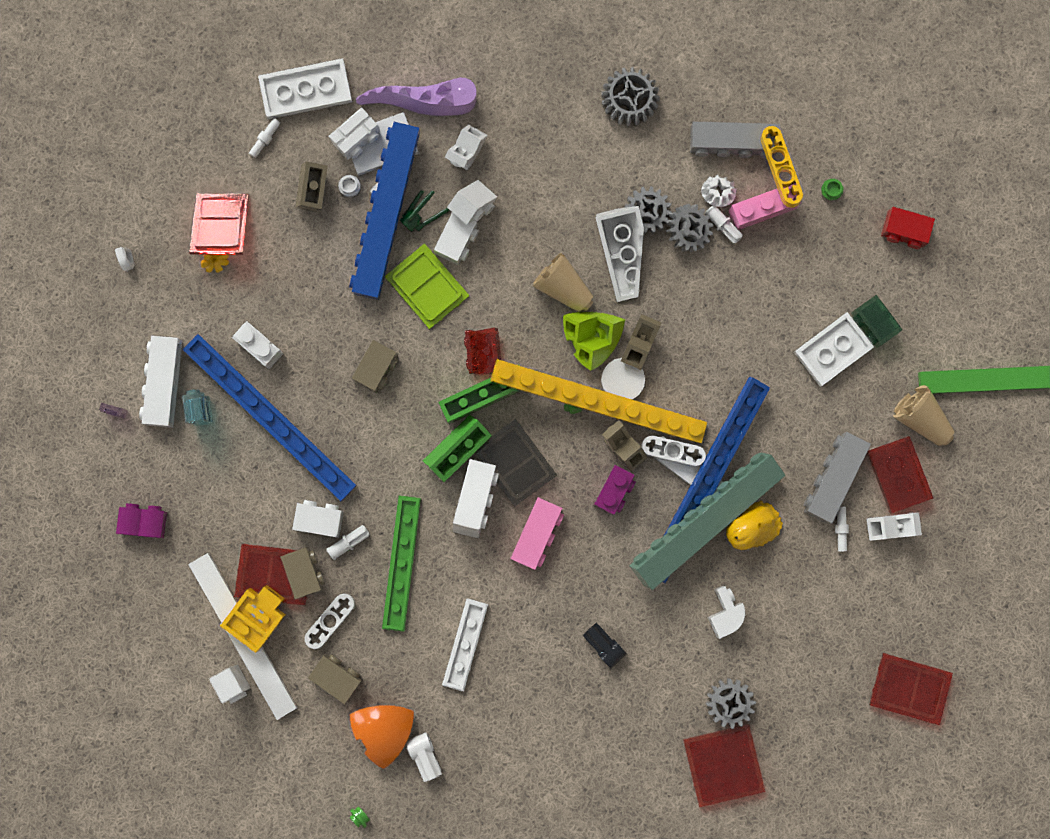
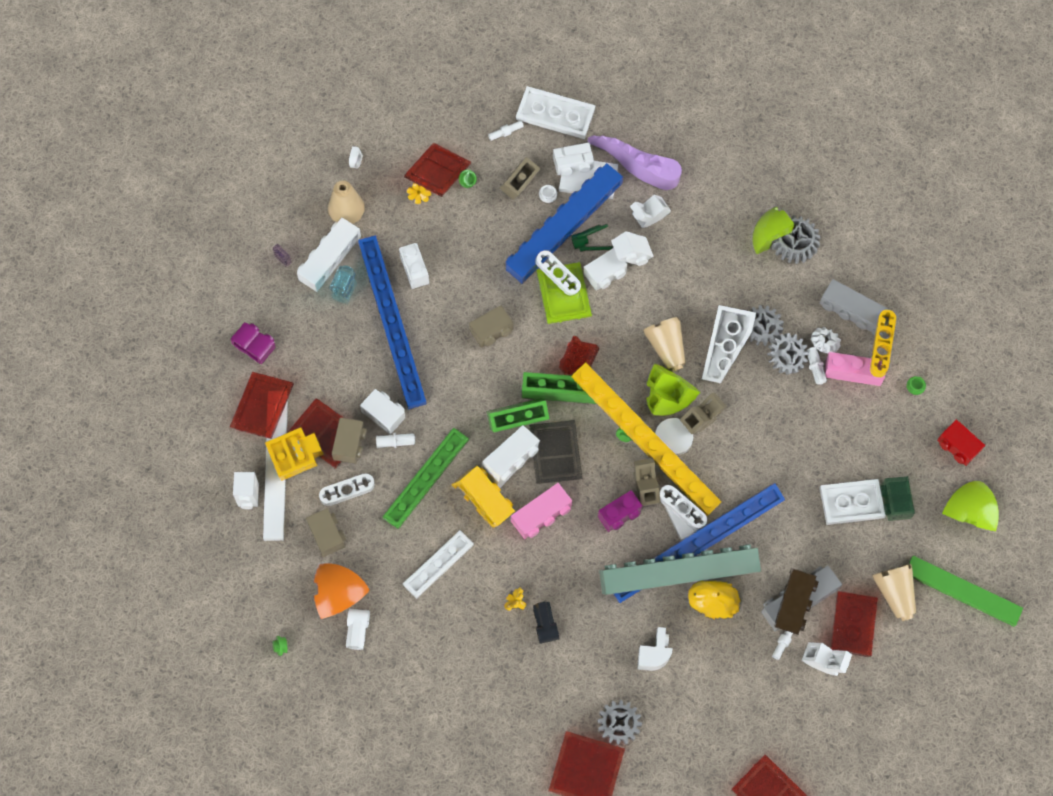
camera: 30 degrees right, 15 degrees down
(147, 317) = (345, 203): none -> tan cone
(191, 583) = (261, 405): none -> clear red piece
(256, 215) = (467, 178): none -> bright green plate
(394, 273) = (572, 279): none -> white beam
(471, 551) = (484, 496): none -> yellow wedge
(562, 639) = (515, 600): none -> yellow plant
(599, 98) = (770, 227): none -> lime brick
(838, 489) = (796, 601): none -> dark brown wedge
(954, 288) = (974, 505): none -> lime brick

